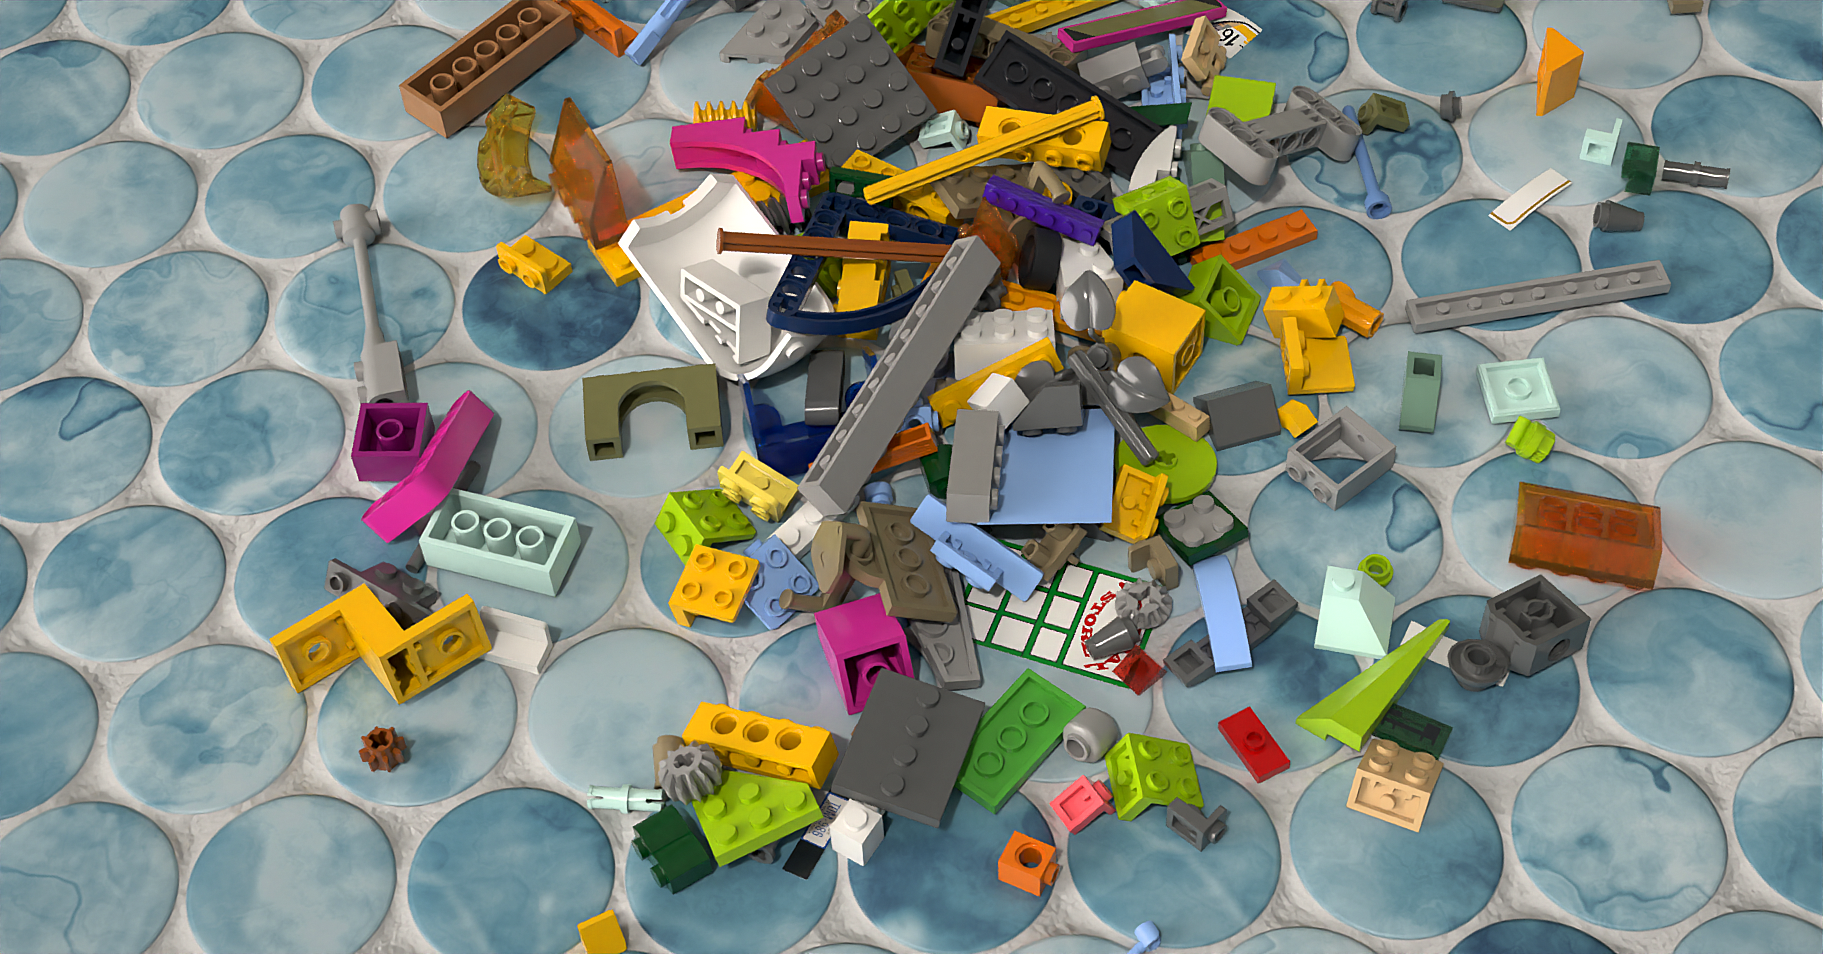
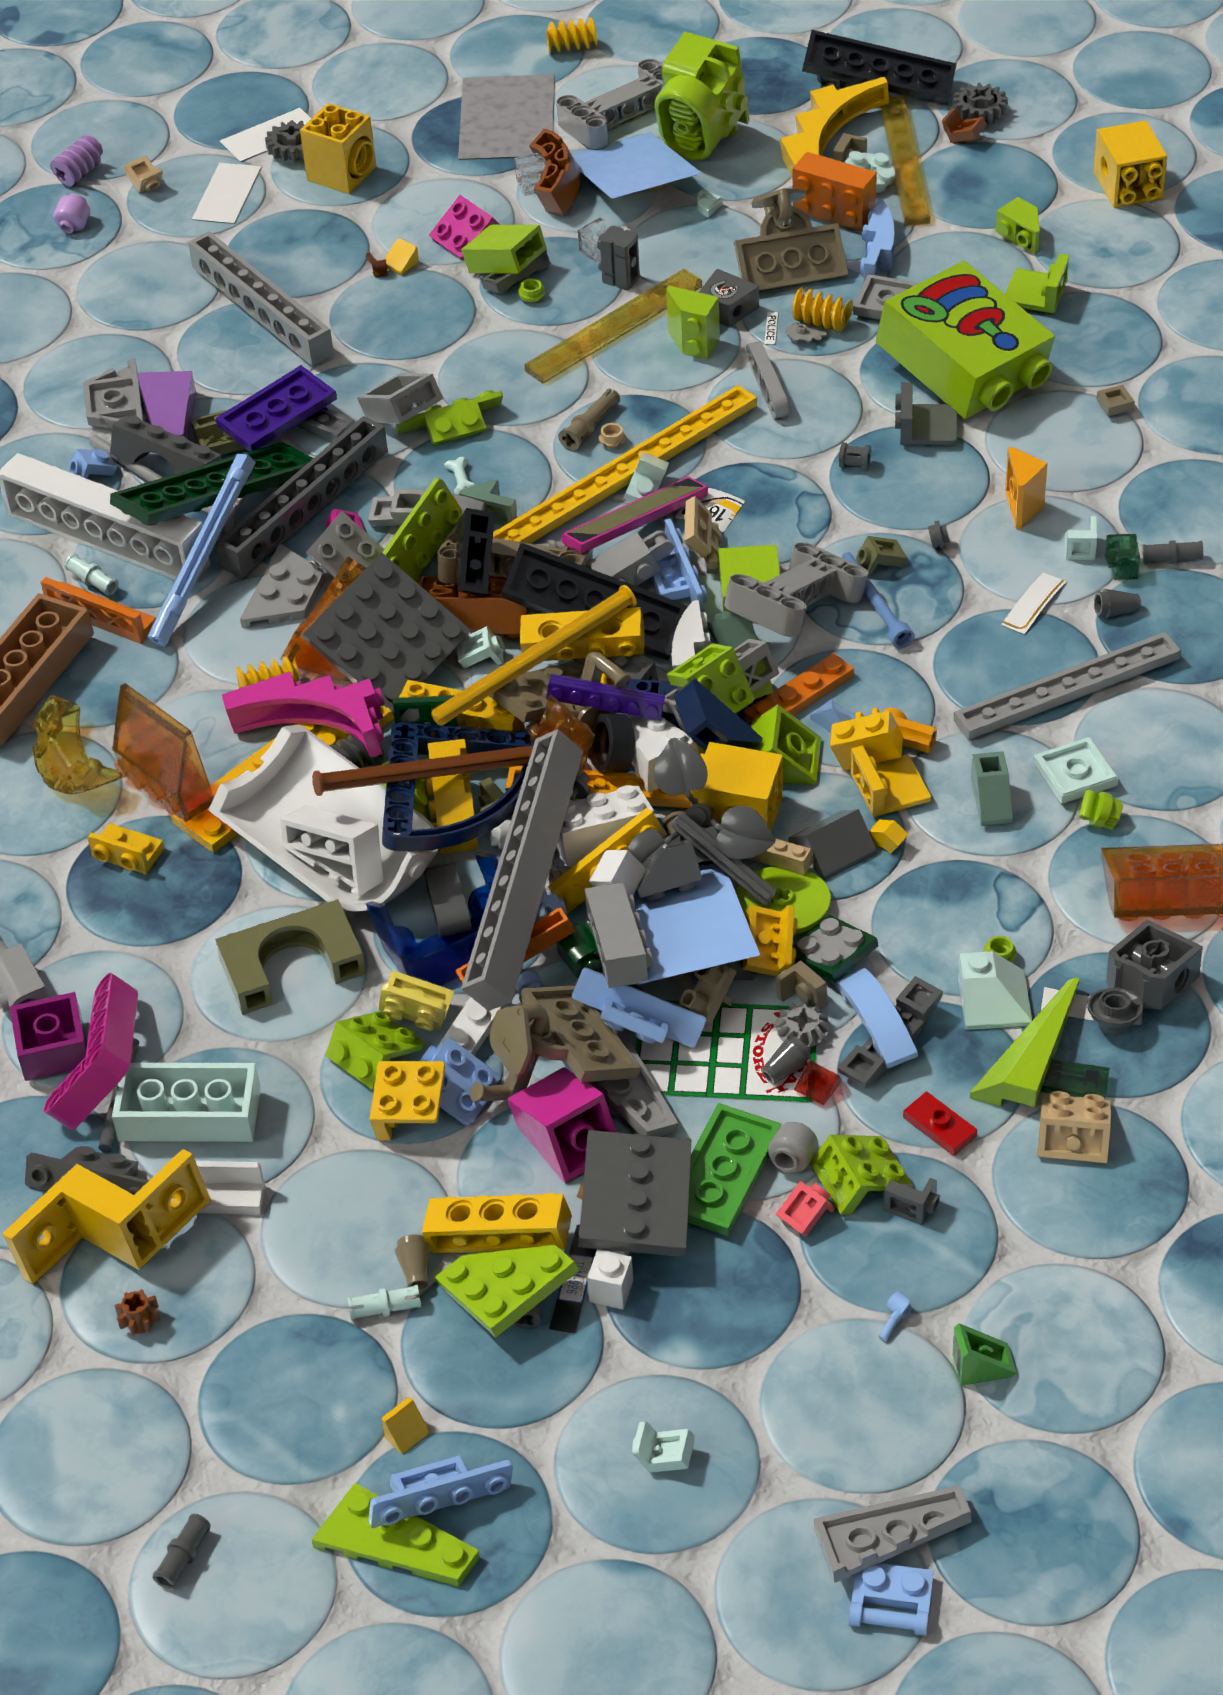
camera: 15 degrees left, 5 degrees down
(671, 849) = (443, 1335): dark green brick -> none
(690, 772) = (442, 1261): light grey gear -> none
(1022, 850) = (768, 1258): orange brick -> none
(1165, 113) = (686, 591): dark green sticker -> none
(1356, 434) = (938, 834): light grey window -> none

